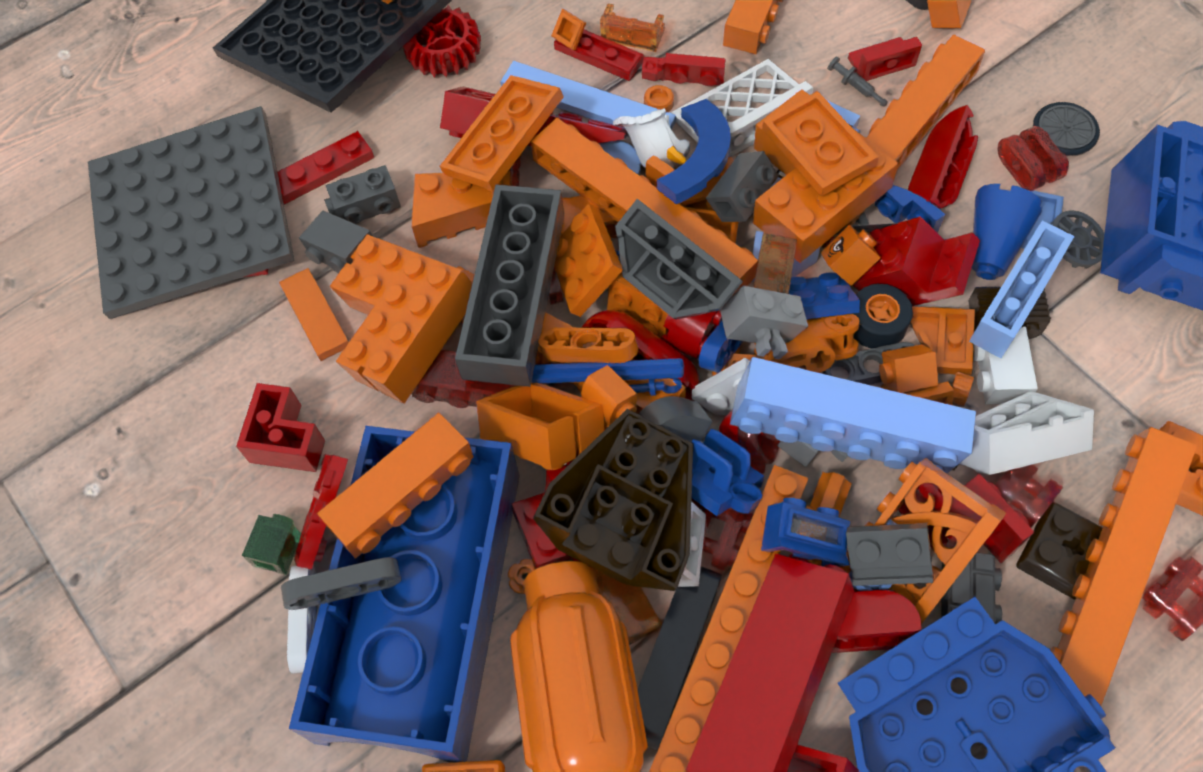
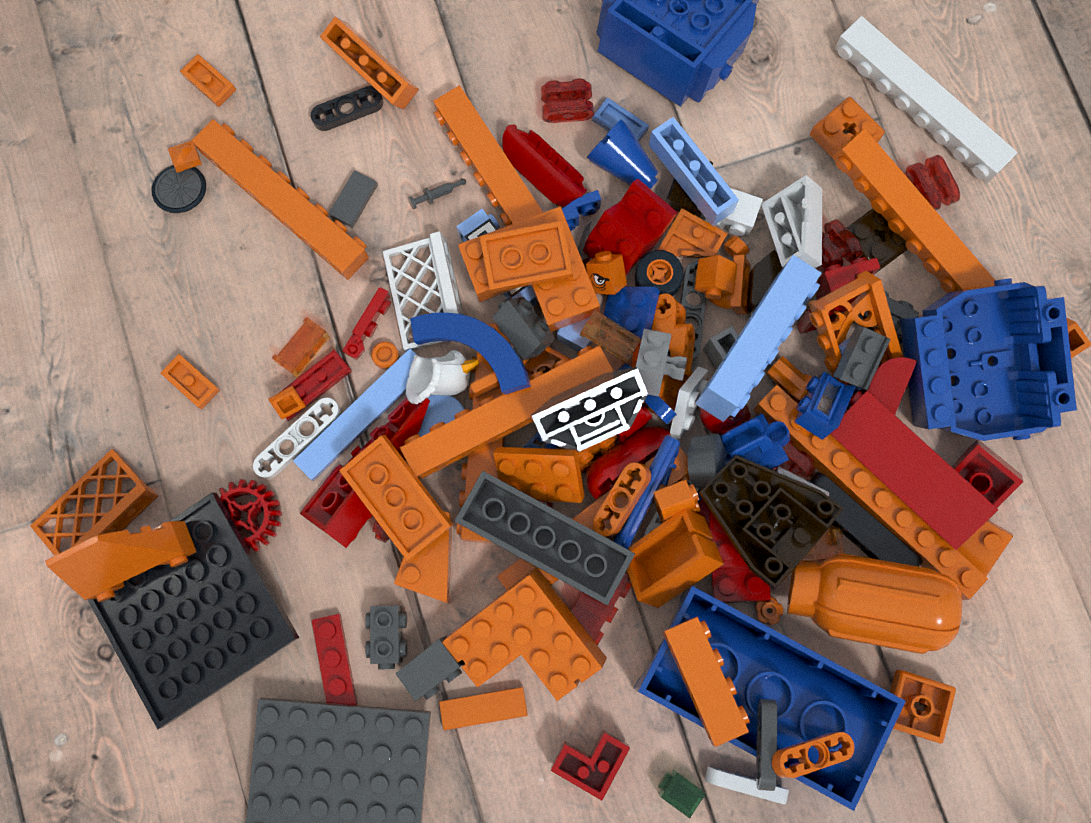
camera: 70 degrees left, 15 degrees up
(311, 541) = (683, 751): red wing -> none
(366, 660) = (800, 751): none -> orange beam
(510, 45) = (294, 434): none -> white beam
(810, 17) = (353, 199): none -> dark grey tile
(885, 57) = (420, 161): red panel -> none
(1069, 127) = (546, 61): dark grey wheel -> none
(1083, 242) = (647, 107): dark grey wheel -> none

